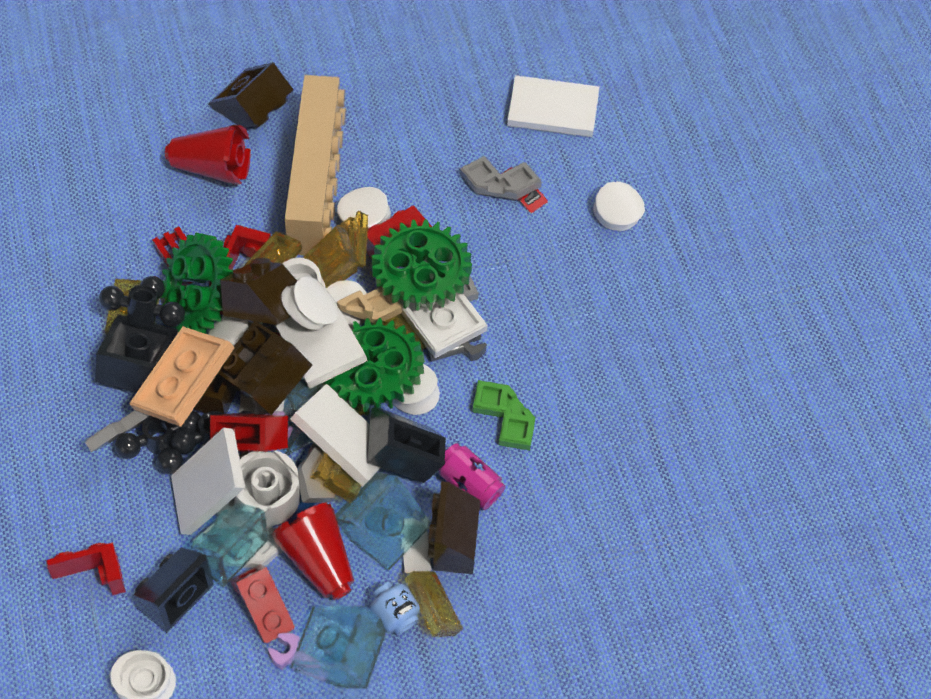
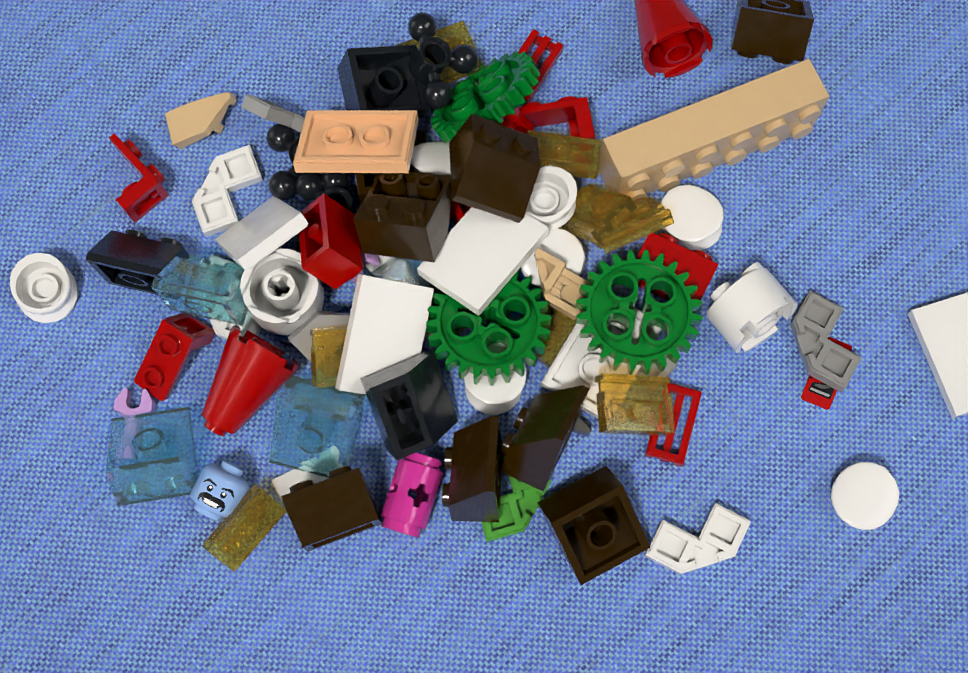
camera: 70 degrees right, 15 degrees up
(69, 502) = (198, 119): none -> tan slope
(146, 522) = (227, 174): none -> white tile
(309, 303) = (503, 220): white piece -> none
(455, 202) = (750, 308): none -> white brick
(478, 361) = (542, 435): none -> dark brown slope
(480, 418) = (475, 472): none -> dark brown slope
(486, 301) = (634, 404): none -> clear yellow plate
(504, 297) = (664, 455): none -> red tile
(554, 369) = (594, 524): none -> dark brown slope
(602, 327) = (685, 552): none -> white tile

